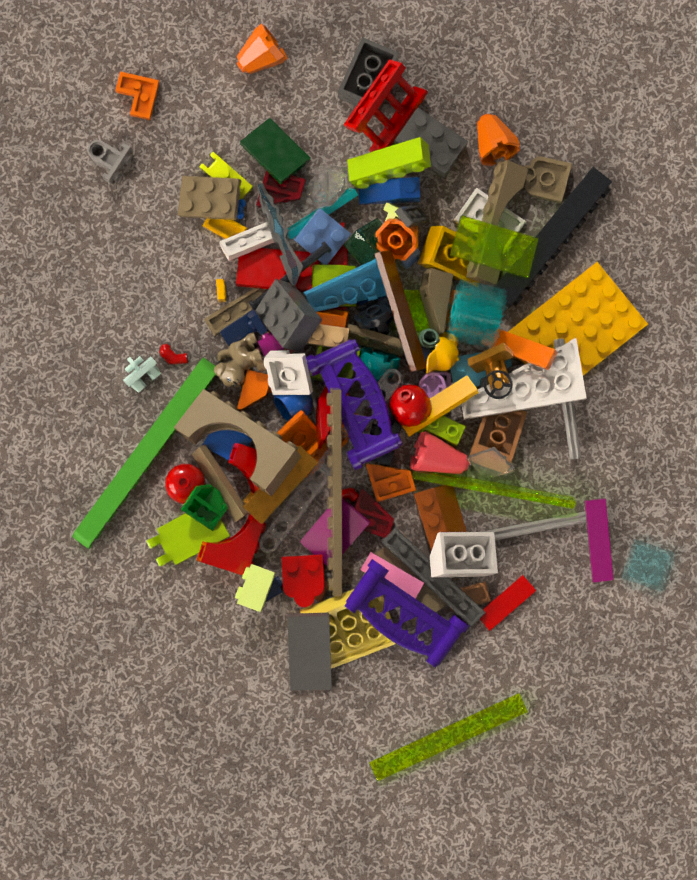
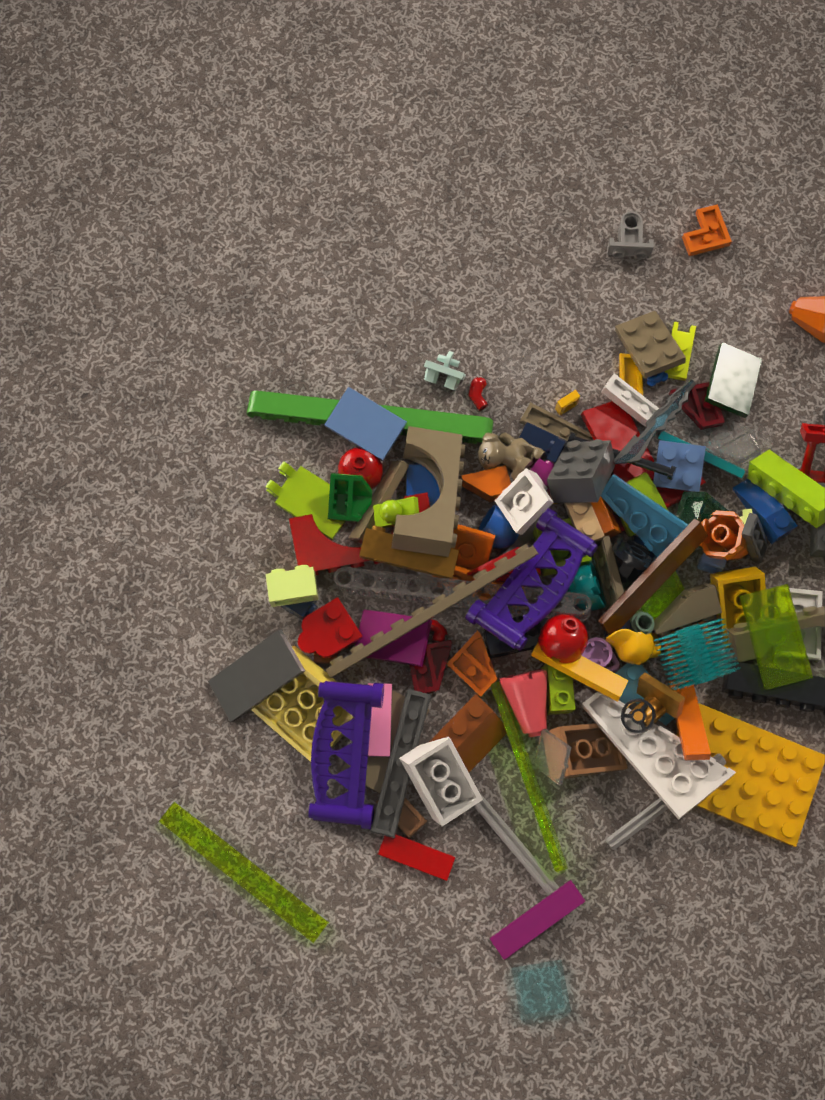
camera: 60 degrees right, 10 degrees down
(153, 460) = (365, 423): none -> medium blue tile
(240, 478) = (386, 513): none -> lime tile

